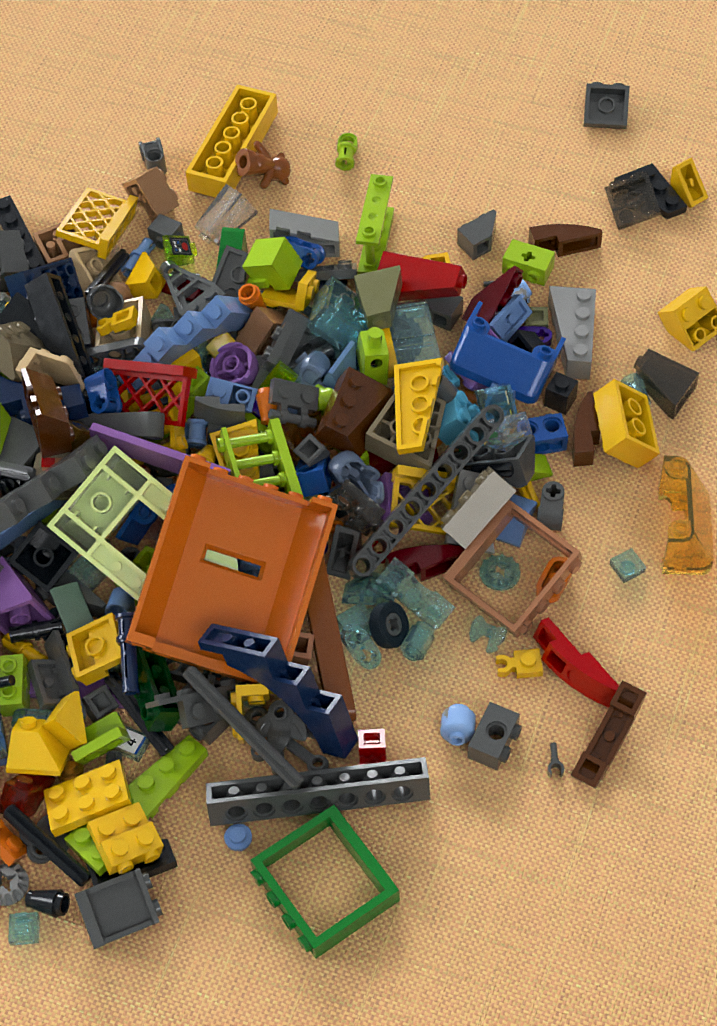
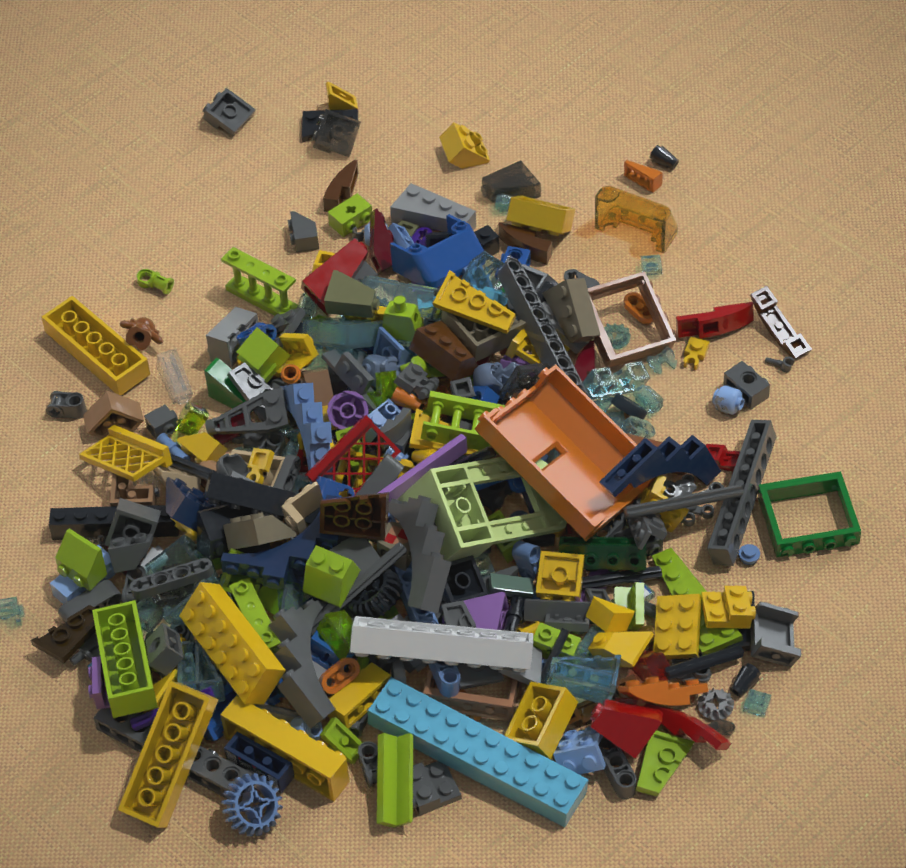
camera: 65 degrees left, 5 degrees down
(129, 661) = (575, 544): dark blue pin -> none

